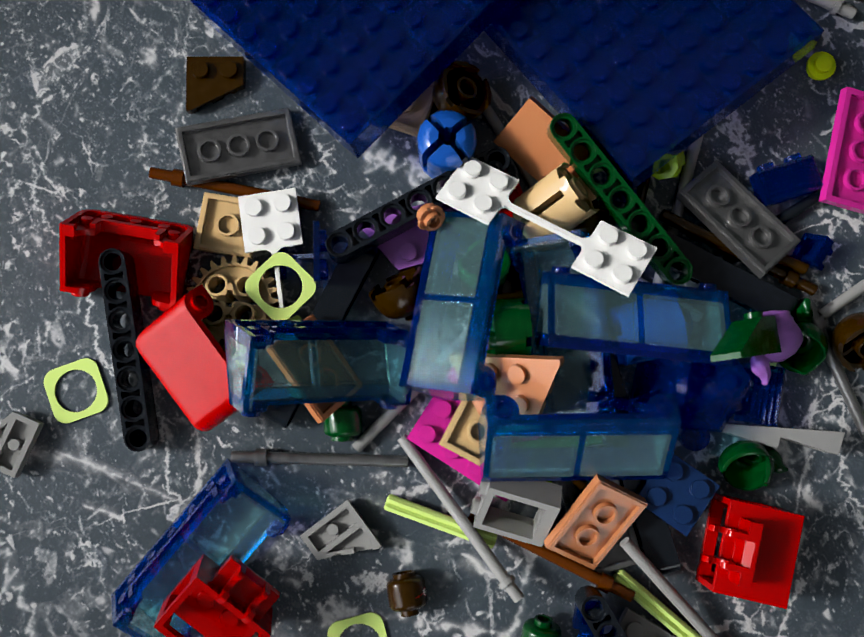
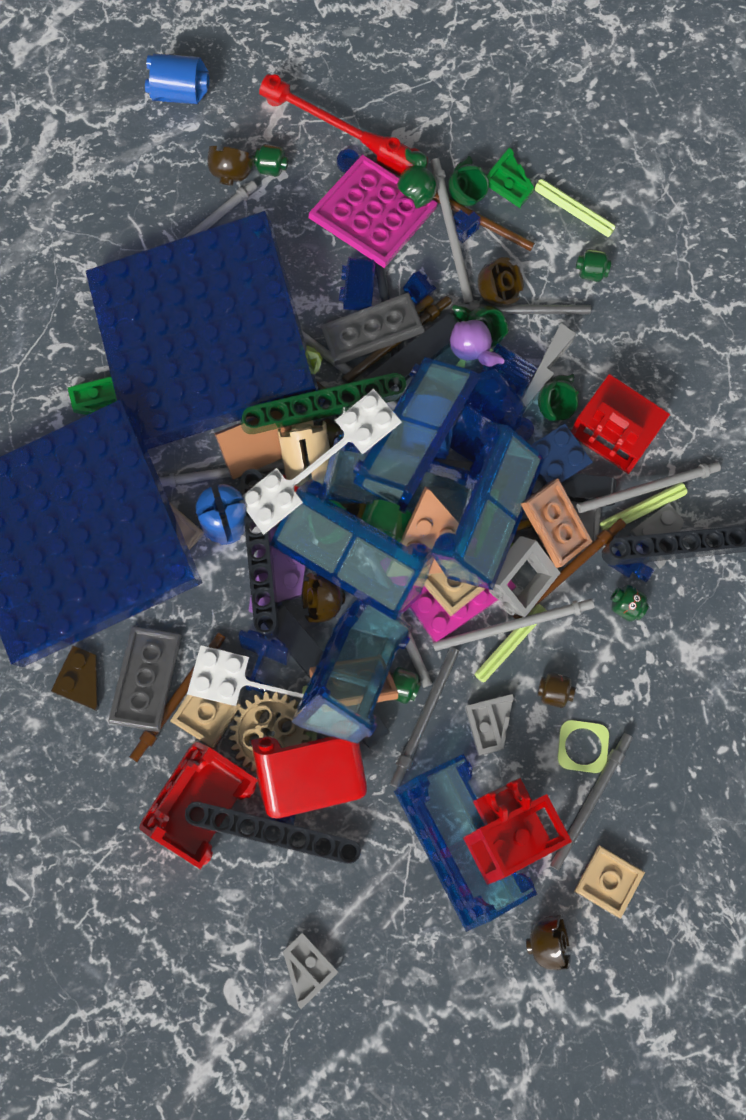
camera: 75 degrees left, 10 degrees down
(50, 383) = (268, 879): yellowish green piece -> none
(280, 259) = (255, 676): yellowish green piece -> none
(430, 217) = (275, 545): nougat plate -> none
(462, 90) = (184, 485): dark brown cylinder -> none
(748, 338) = (465, 355): dark green slope -> none
(820, 66) = (283, 223): neon yellow plate -> none

